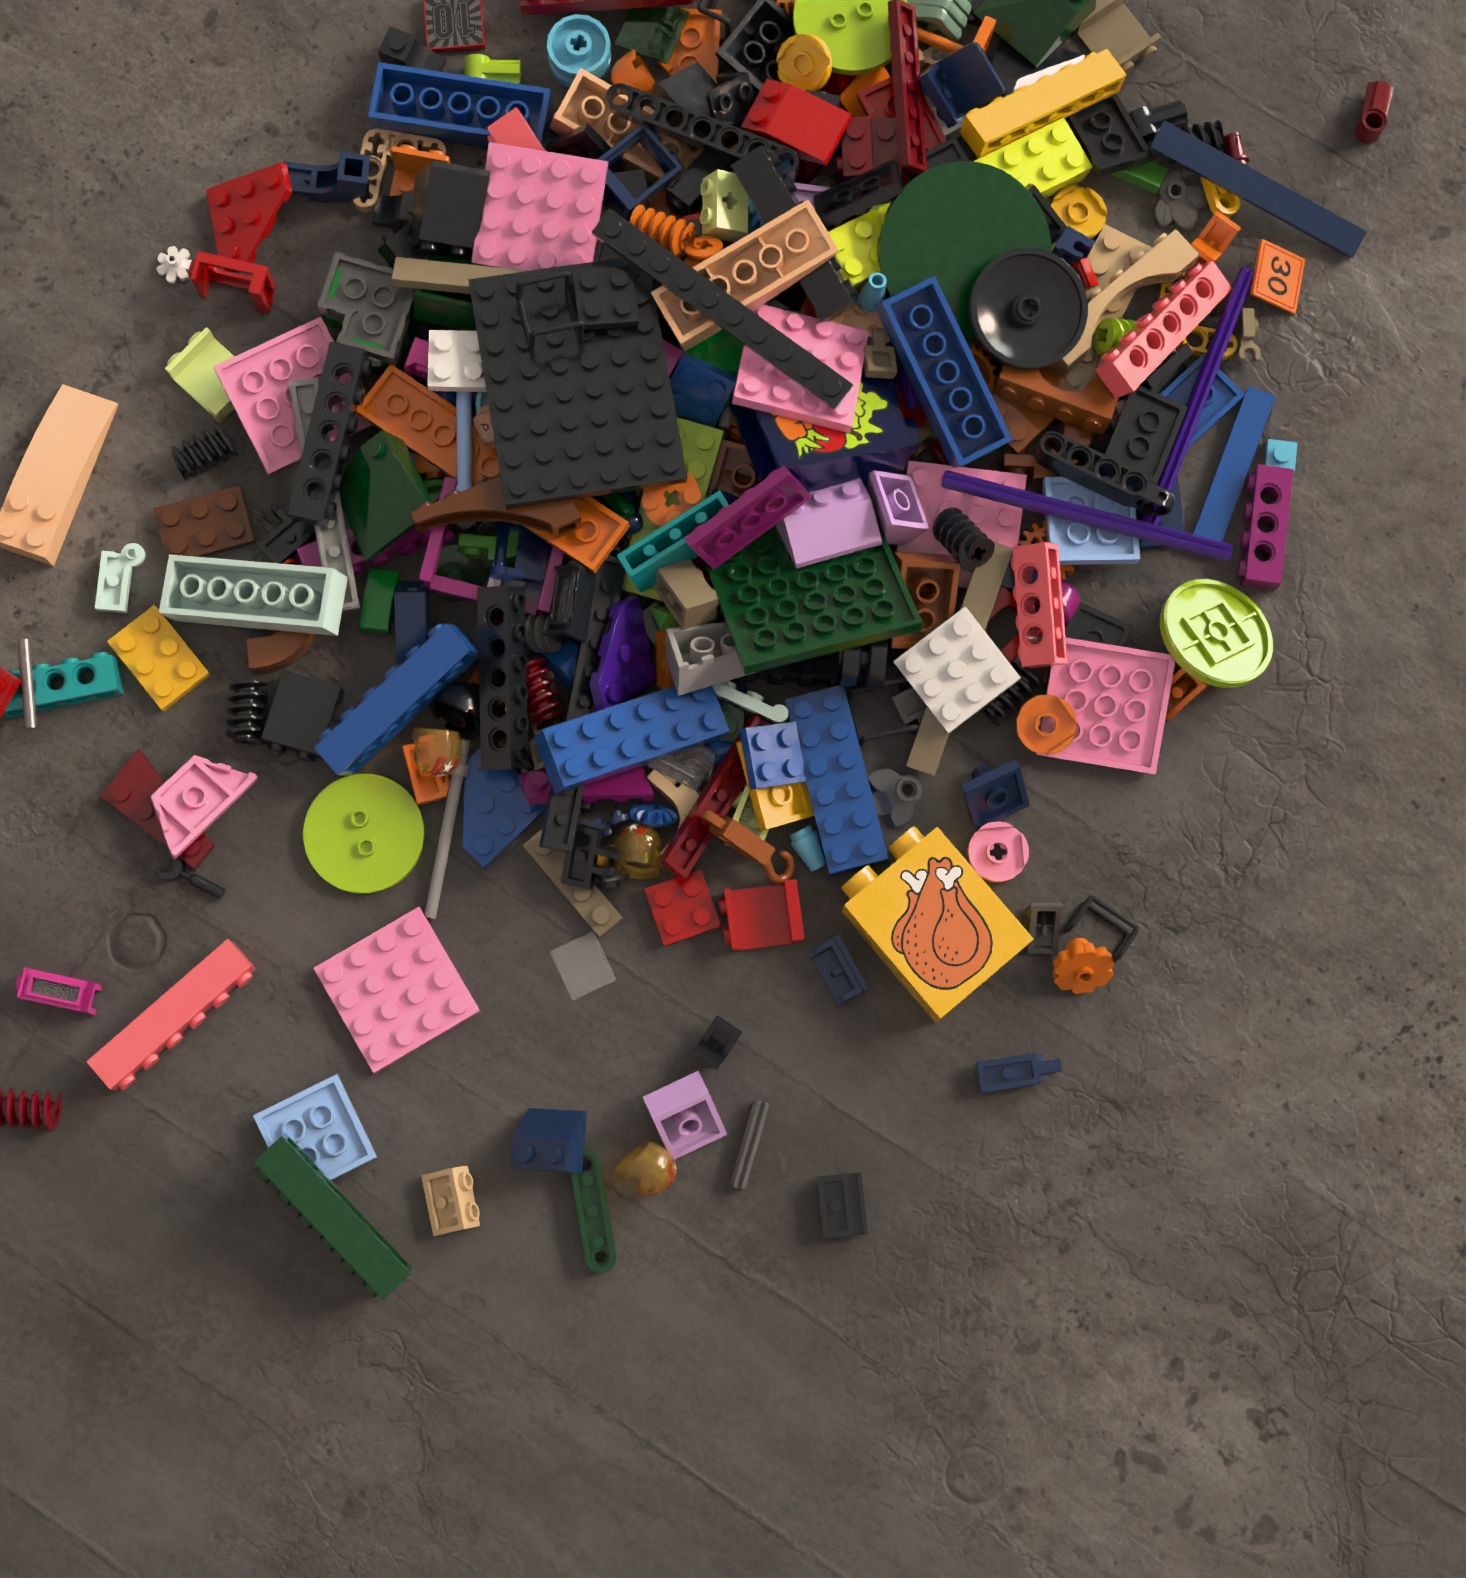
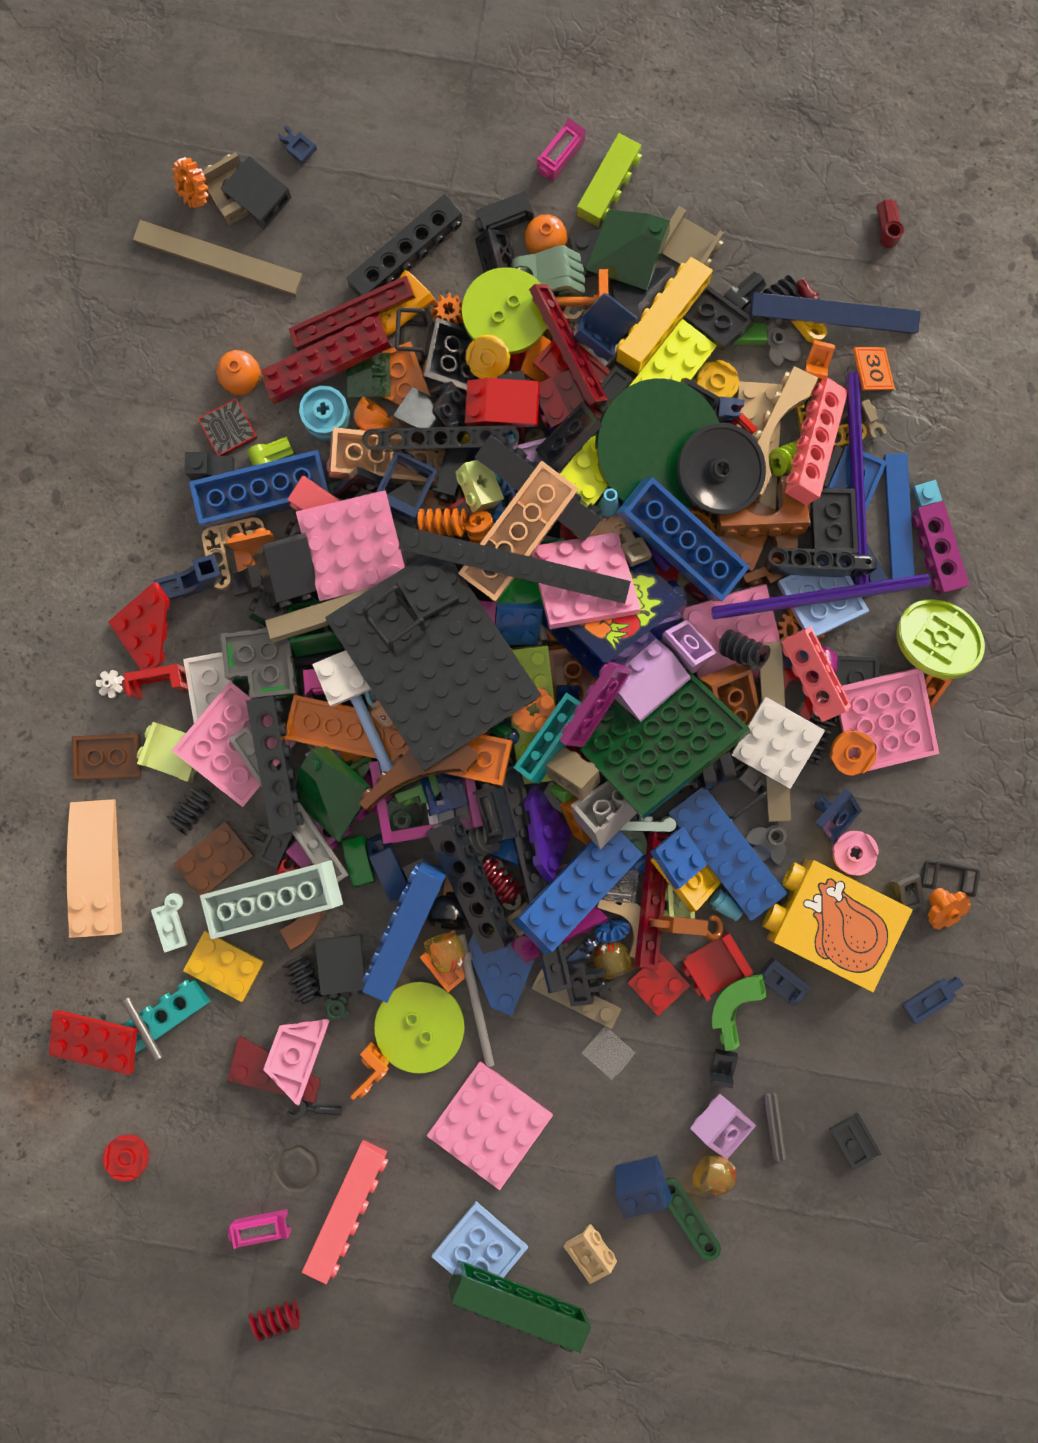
camera: 20 degrees left, 5 degrees up
(130, 348) = (106, 756): none -> reddish brown tile
(269, 759) = (332, 1013): none -> dark green plate
(290, 304) = (204, 681): none -> white plate
(291, 859) = (373, 1059): none -> orange bracket
(760, 964) = (726, 1006): none -> bright green arch

